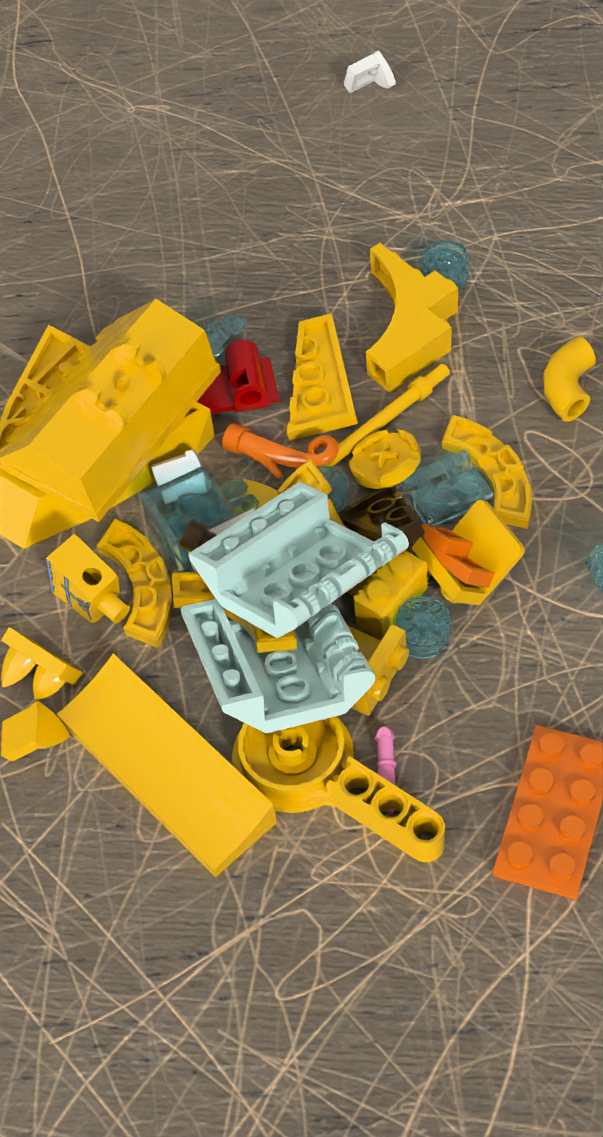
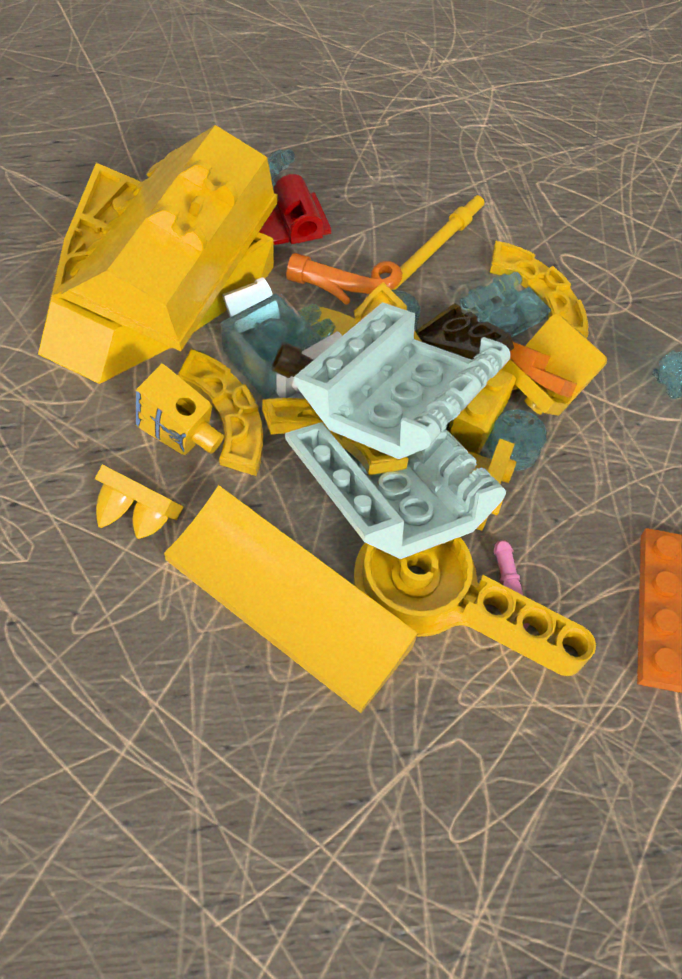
camera: 20 degrees left, 5 degrees up
(31, 730) = (139, 574): yellow tile -> none
(320, 382) = (368, 217): yellow wing -> none
(385, 459) = (444, 282): yellow tile -> none
(419, 324) = (446, 153): yellow arch -> none
(448, 260) = (460, 109): clear light blue wheel -> none
(562, 377) = (588, 208): yellow cylinder -> none

